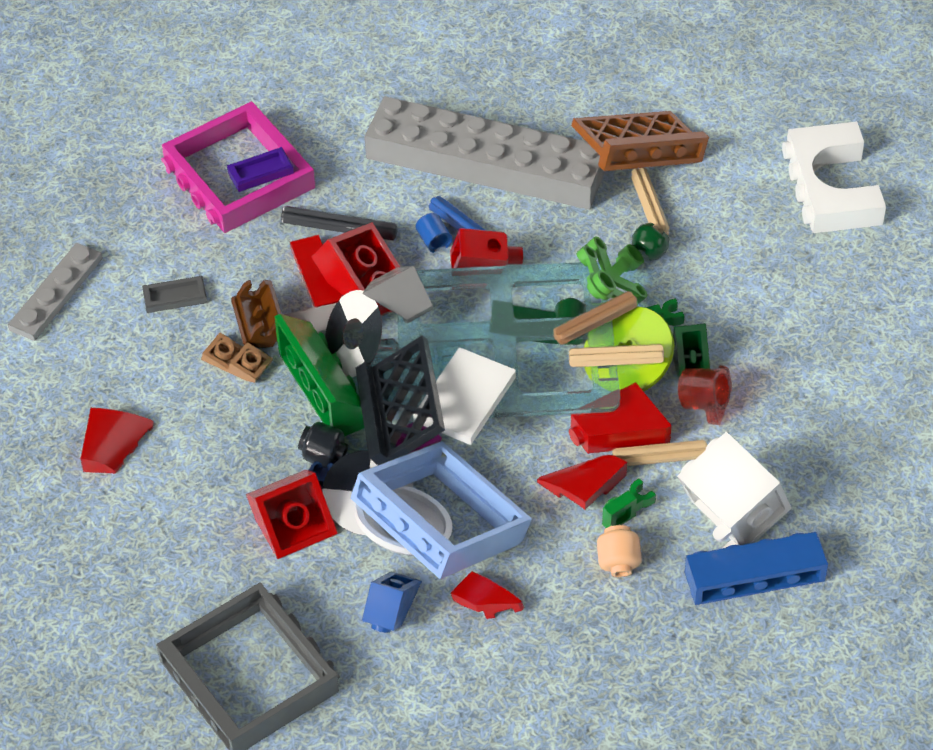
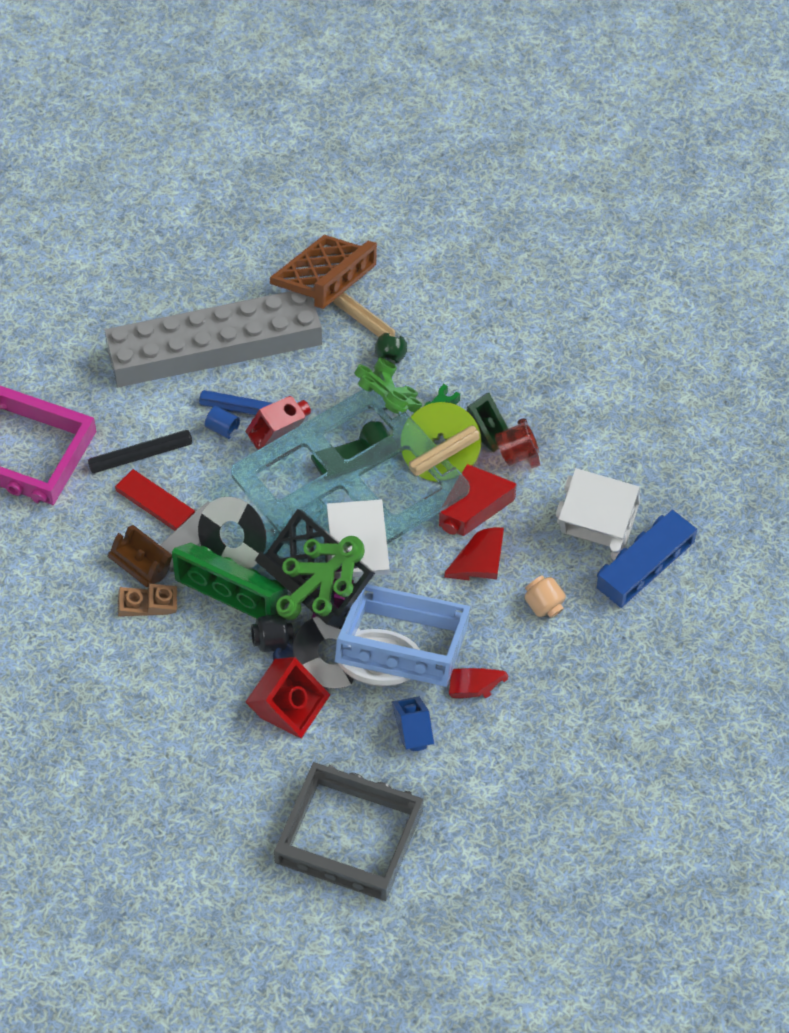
camera: 35 degrees left, 5 degrees up
(111, 438) = (102, 716): red slope -> none
(174, 294) = (55, 575): dark grey tile -> none
(260, 169) = (53, 438): dark purple tile -> none
(355, 260) = (193, 478): red slope -> none
(401, 293) = (248, 482): light grey slope -> none
(428, 395) = (322, 575): none -> bright green plant
(595, 317) = (407, 429): medium nougat axle -> none
(623, 508) = (522, 565): green plate -> none
(661, 452) = (518, 507): tan axle -> none
(824, 205) = (494, 257): white arch -> none

